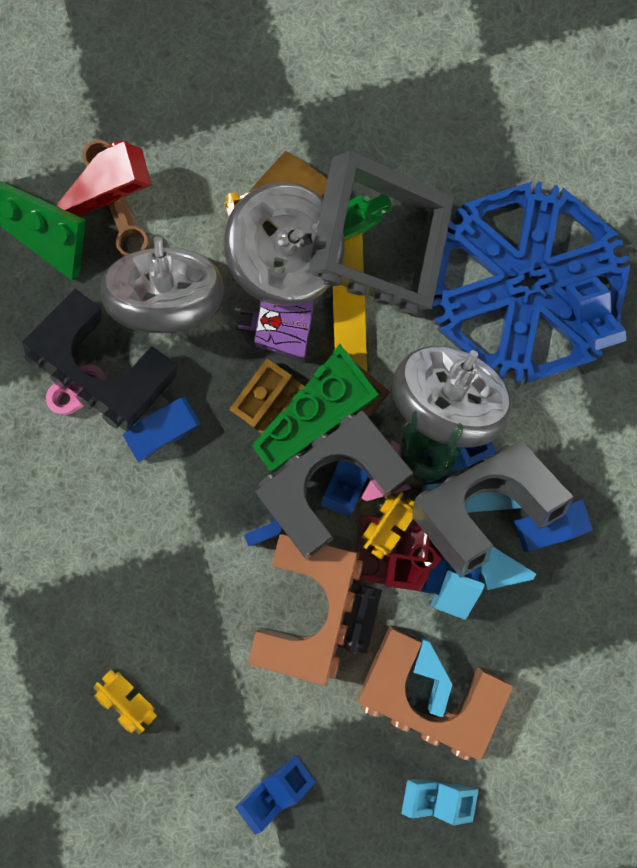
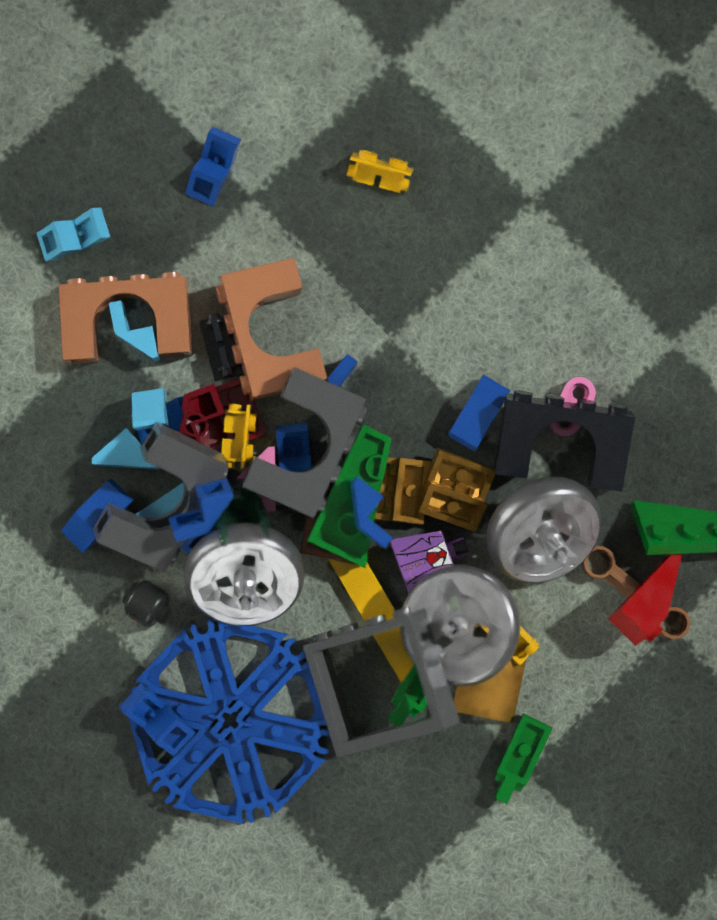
camera: 145 degrees right, 0 degrees up
(220, 372) = (456, 490): none -> pearl gold slope
(294, 117) = (520, 756): none -> green hinge
(310, 396) = (364, 502): none -> blue slope
(472, 463) = (212, 501): none -> blue slope
(549, 421) = (146, 603): none -> pearl dark grey head

